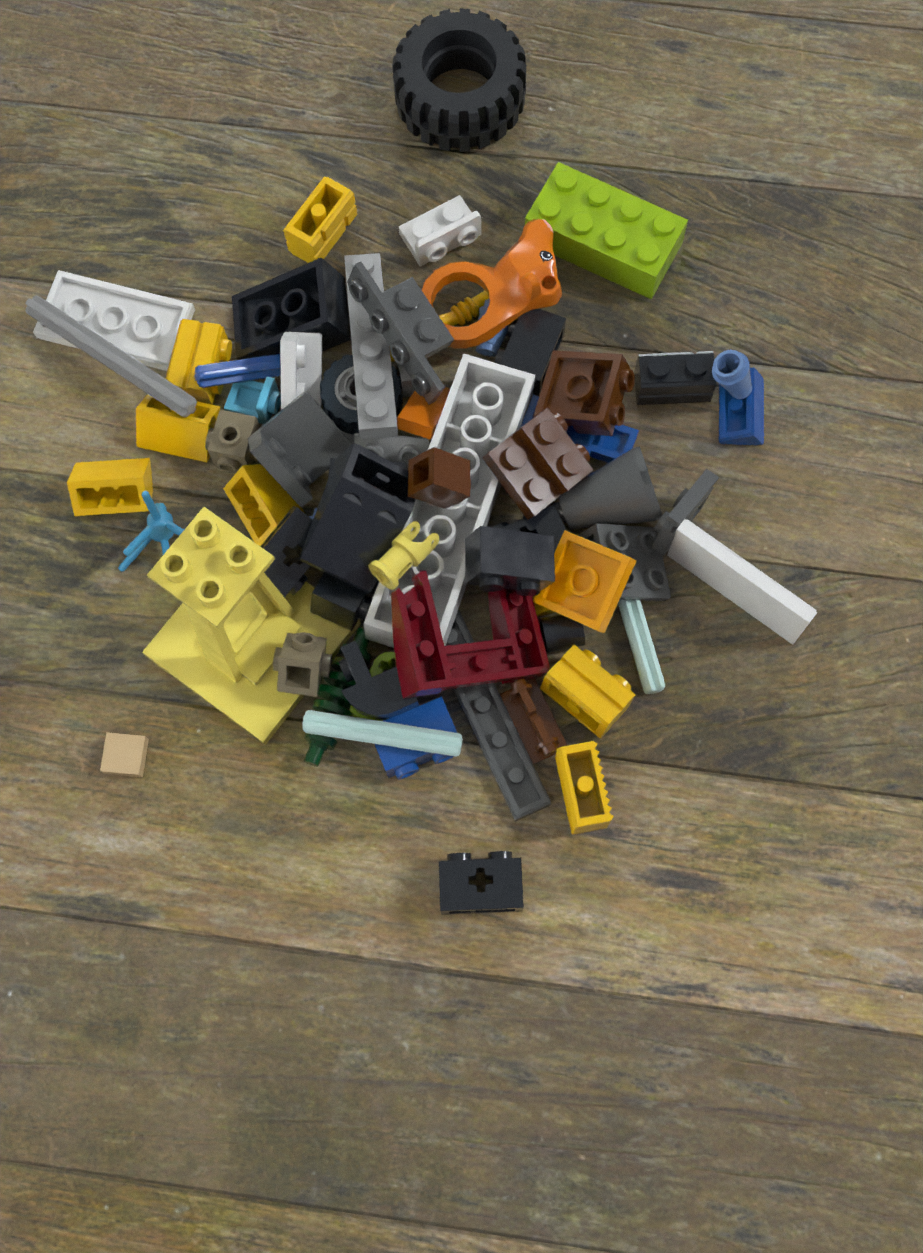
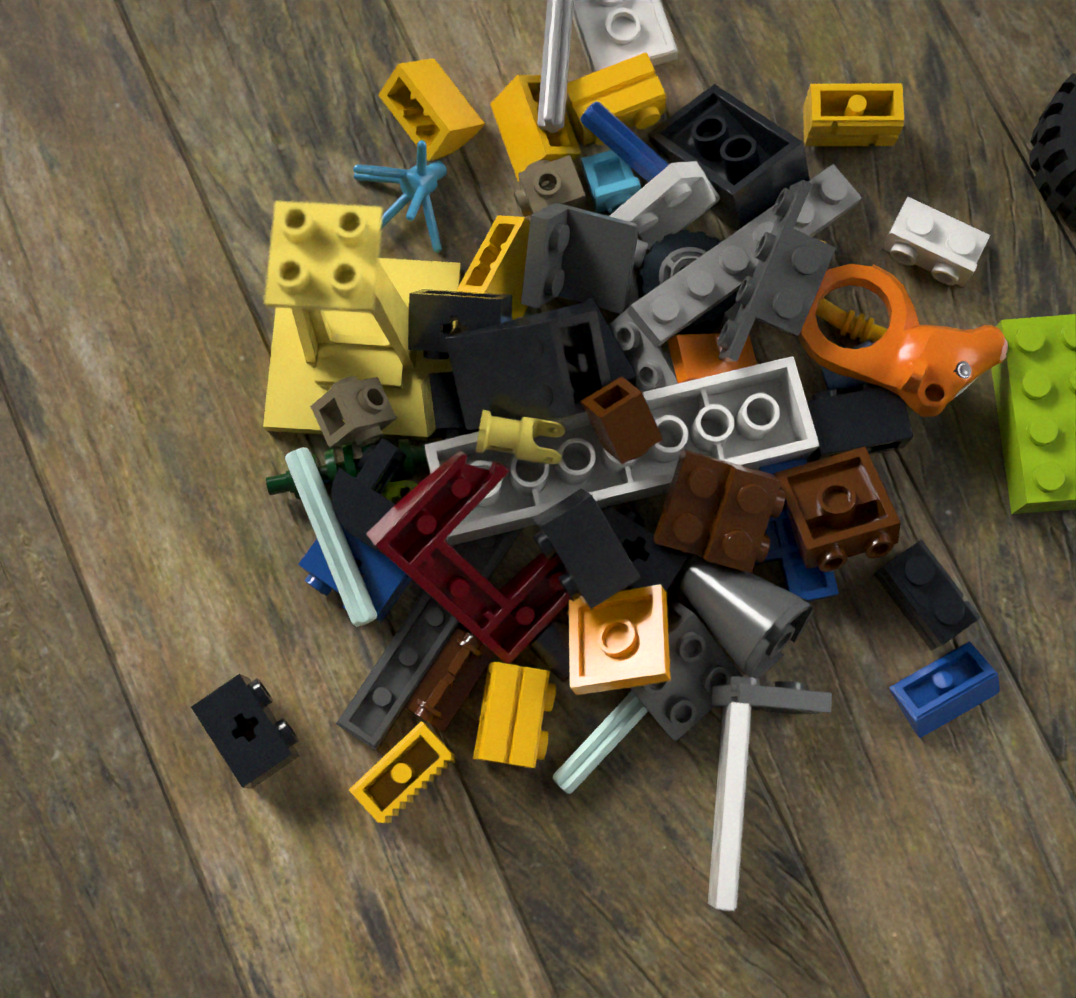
camera: 60 degrees right, 5 degrees up
(124, 755) = (173, 305): tan tile -> none
(732, 372) = (965, 655): medium blue cone -> none

